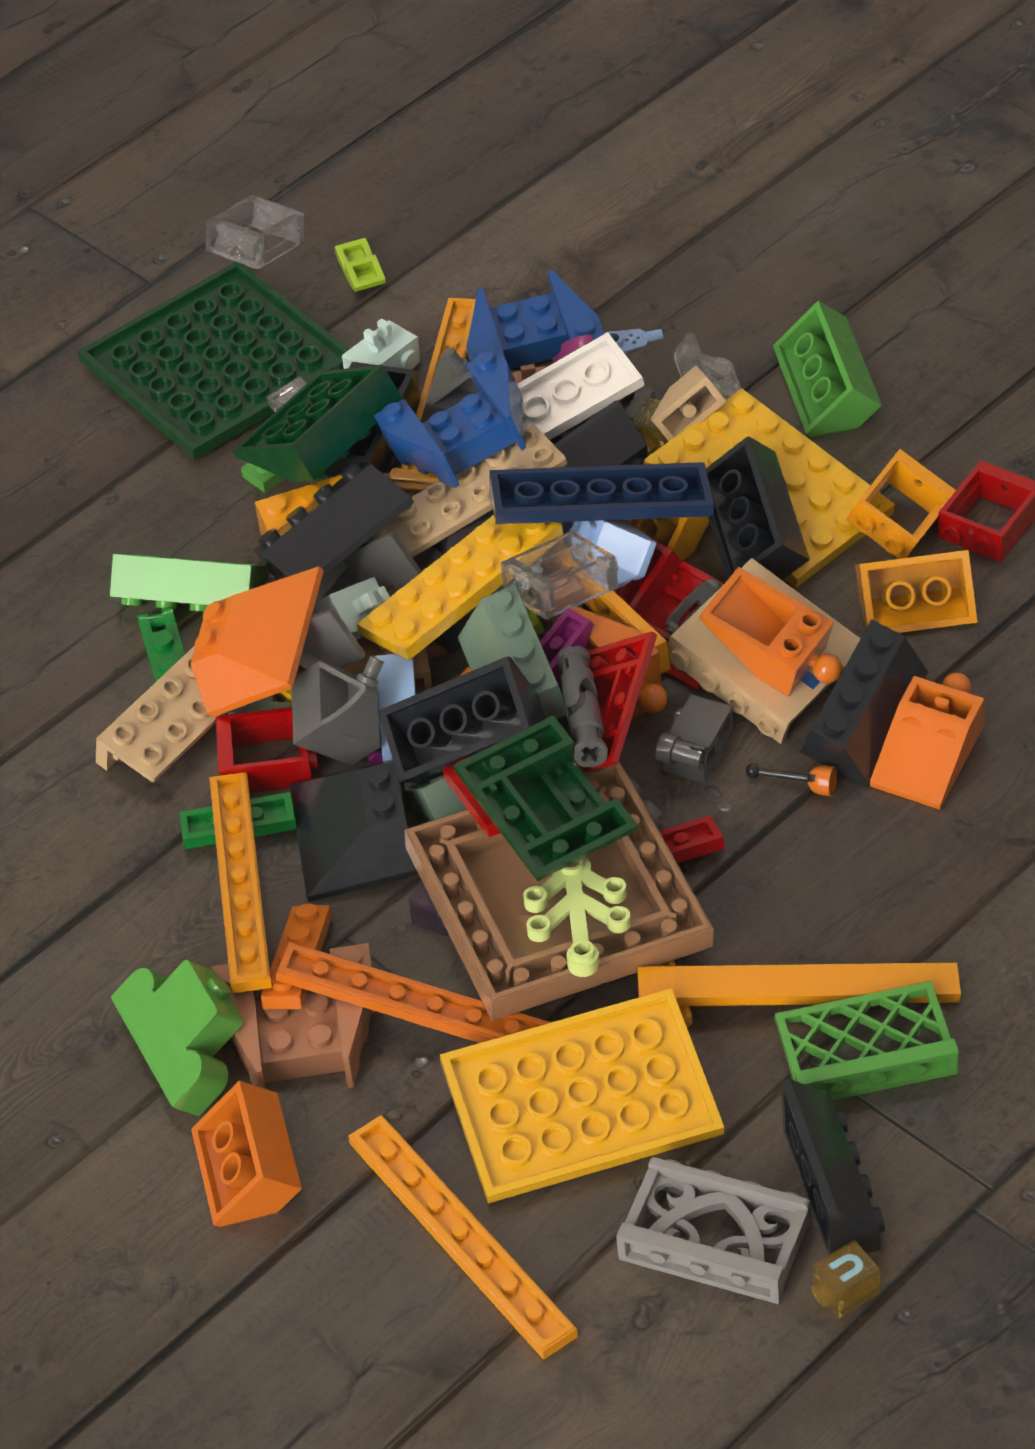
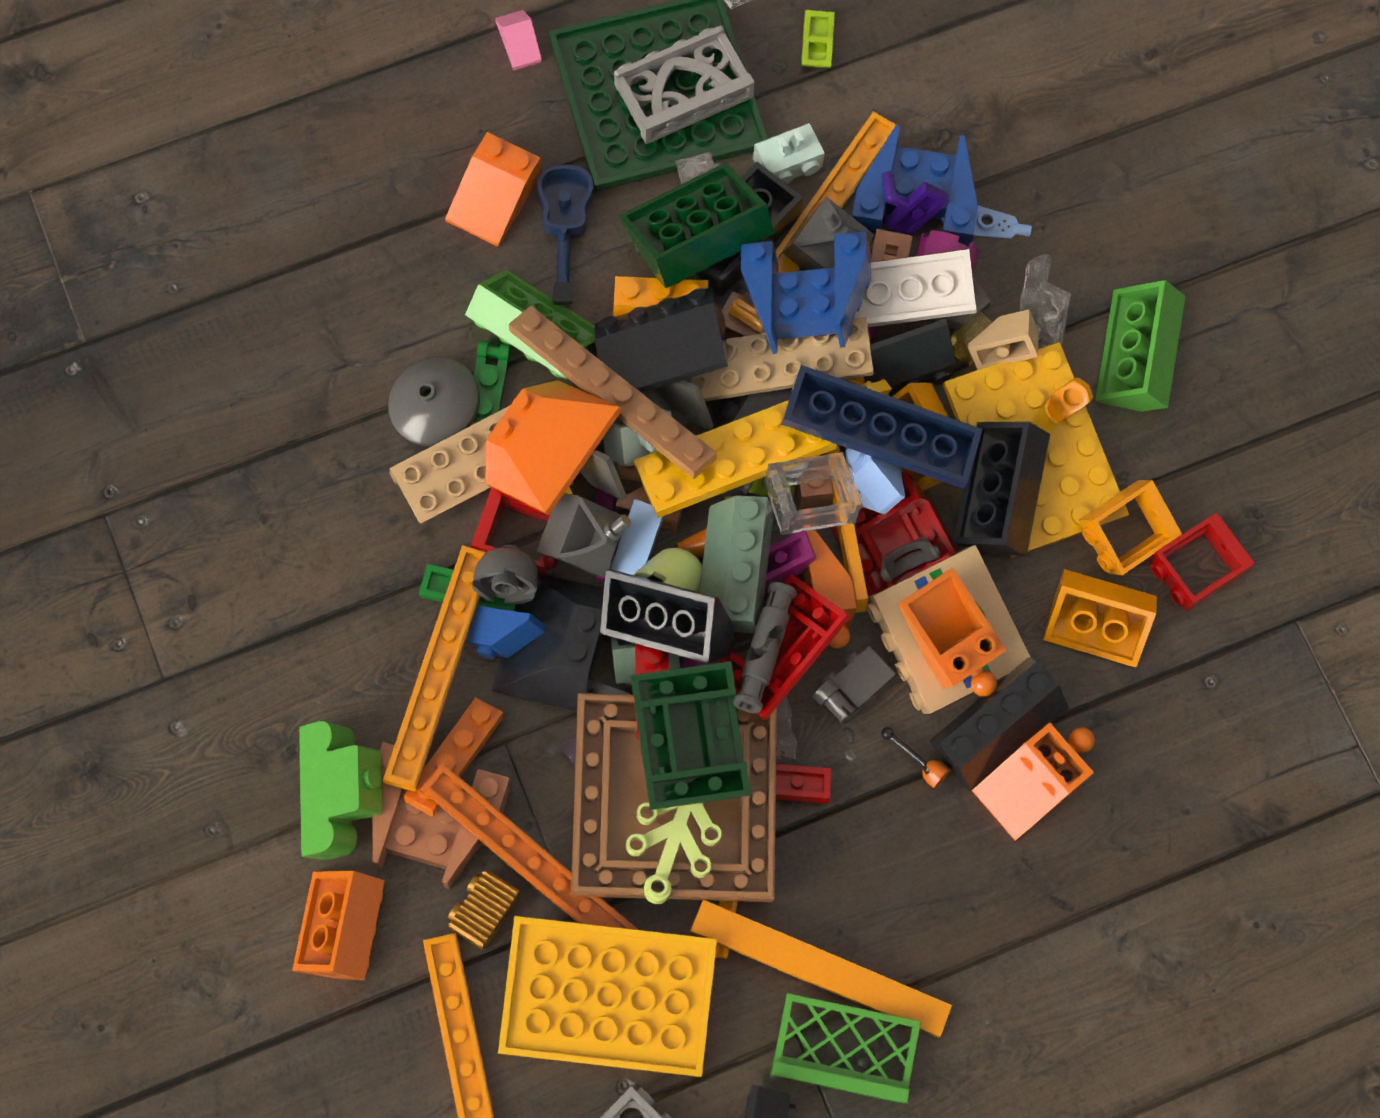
camera: 15 degrees right, 25 degrees up
(50, 372) = (519, 39): none -> bright pink slope
(87, 490) = (494, 189): none -> orange slope
(110, 679) = (441, 414): none -> dark grey dish
(169, 479) = (565, 198): none -> dark blue piece
(242, 361) = (680, 57): none -> light grey fence
(273, 774) = (506, 574): none -> dark grey cylinder
(294, 830) = (502, 632): none -> blue slope
(339, 575) = (601, 381): none -> medium nougat plate
(401, 1079) = (483, 909): none -> pearl gold brick
(536, 341) = (914, 210): none -> dark purple plate
(778, 421) = (1068, 400): none -> light orange hair

